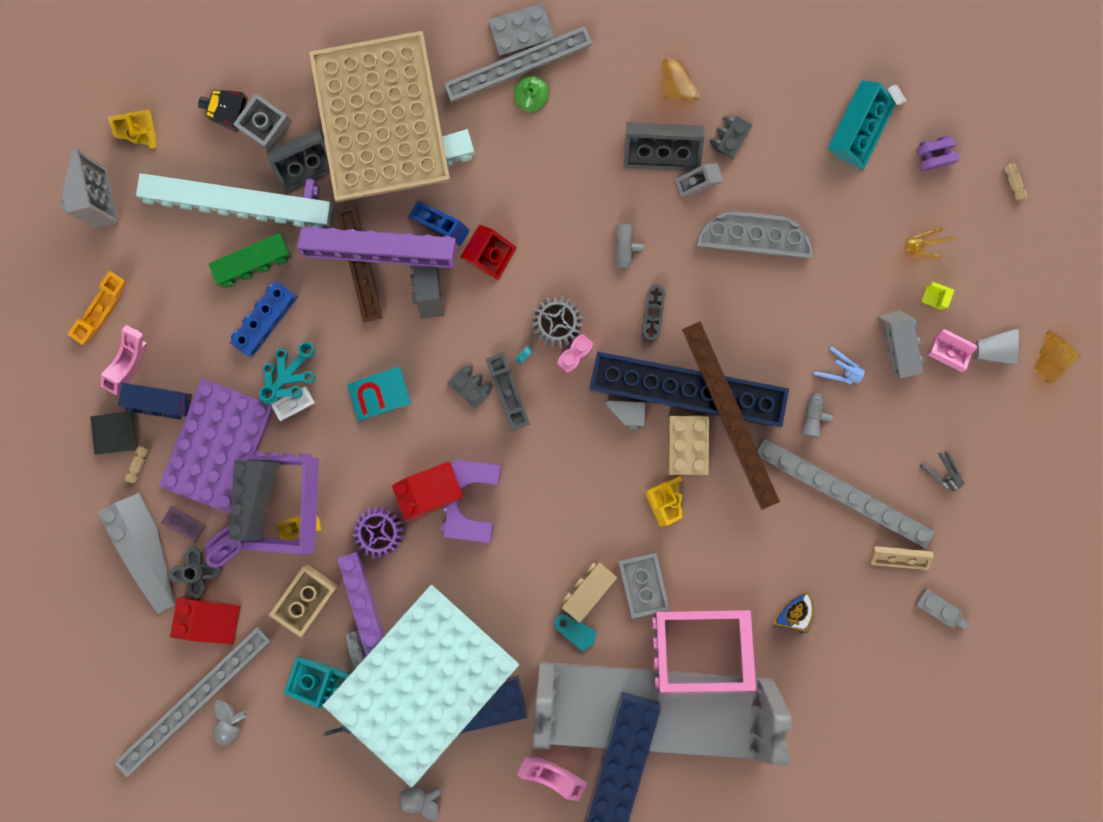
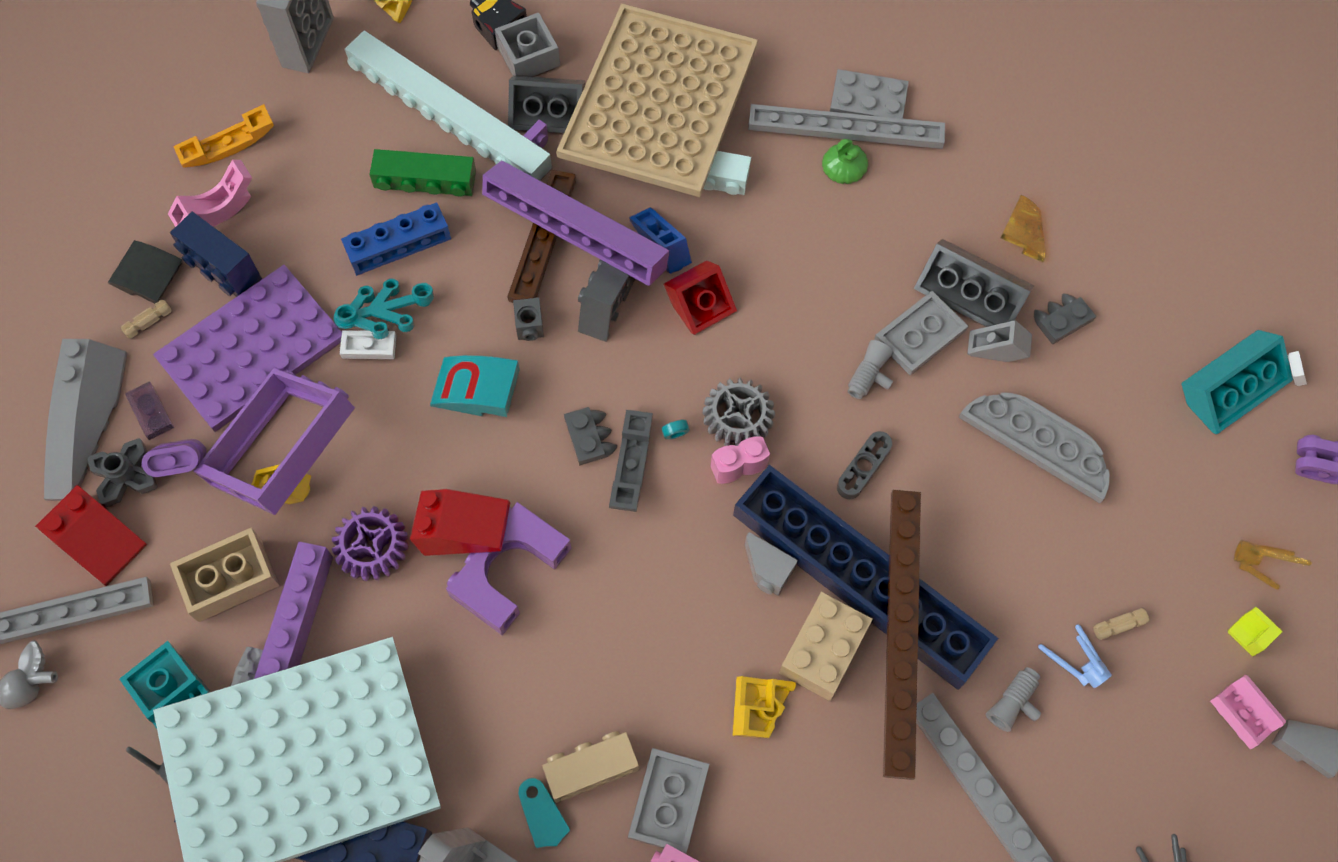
camera: 25 degrees right, 20 degrees down
(250, 498) = (244, 411): dark grey wedge -> none
(383, 322) = (524, 310): none -> dark grey brick
(645, 199) = (921, 332): none -> light grey plate
(856, 333) = (1121, 623): none -> tan axle
(903, 343) = (1180, 667): light grey wedge -> none

